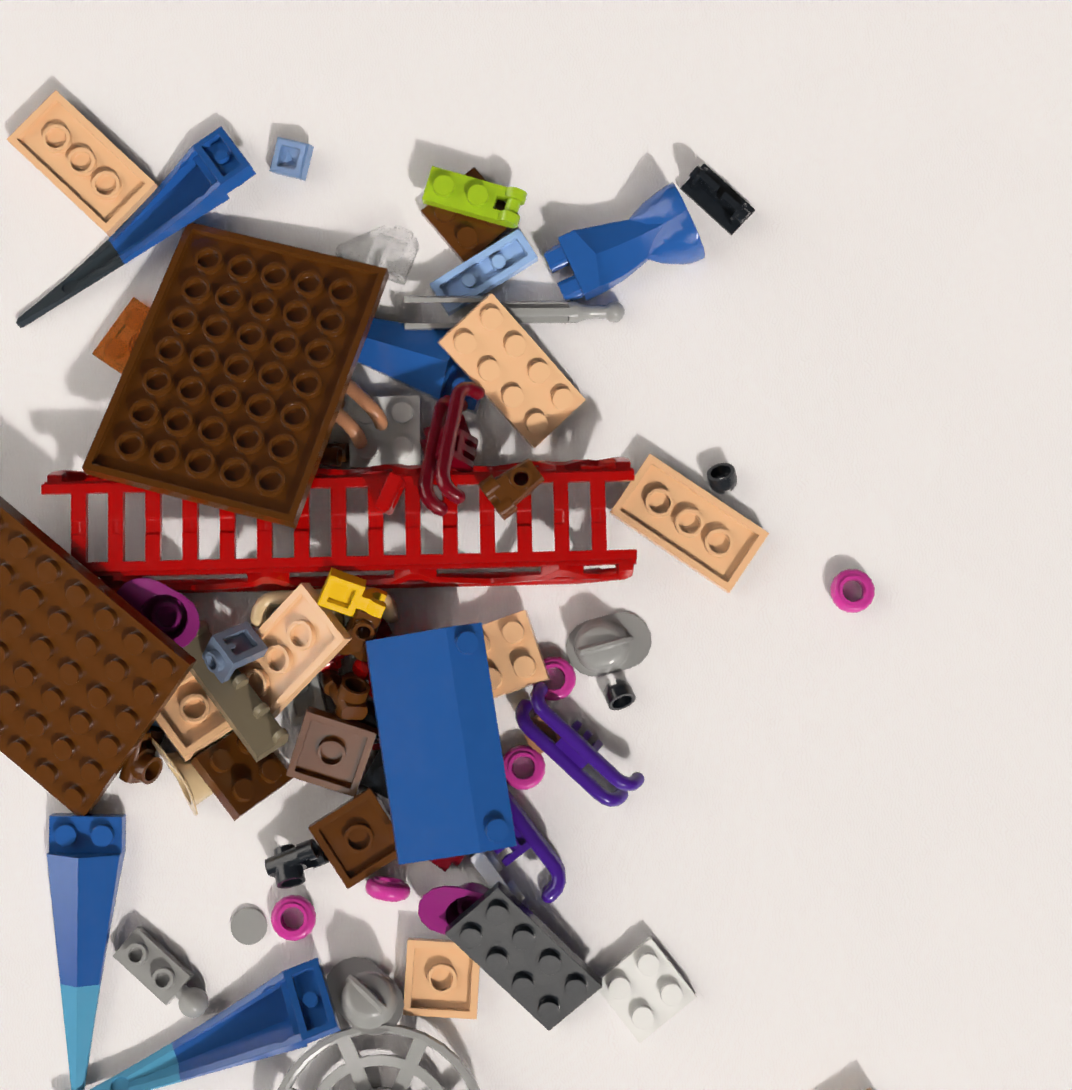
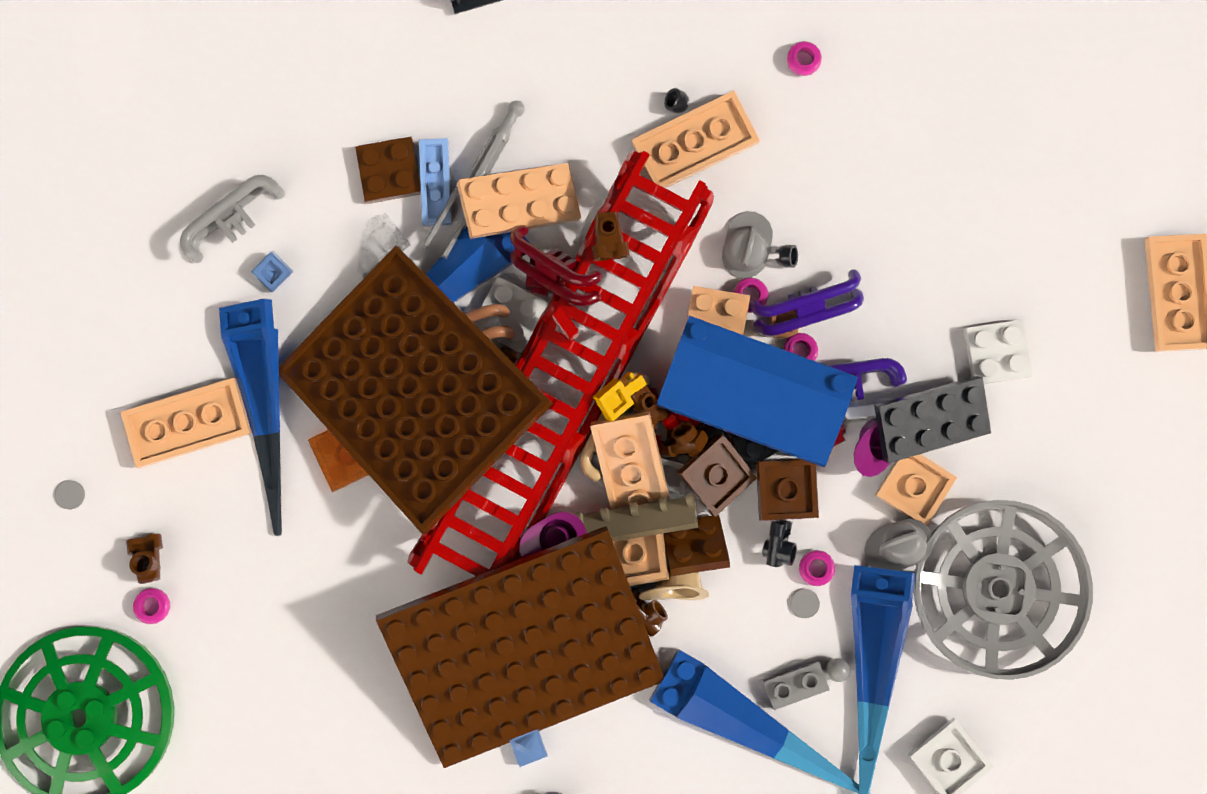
camera: 65 degrees left, 0 degrees up
(232, 650) = (610, 501): sand blue bracket -> none
(322, 78) = (227, 214): none -> light grey piece
(387, 888) = (833, 490): dark pink piece -> none
(473, 197) = (379, 157): lime plate -> none
(613, 251) = (472, 92): blue hips -> none

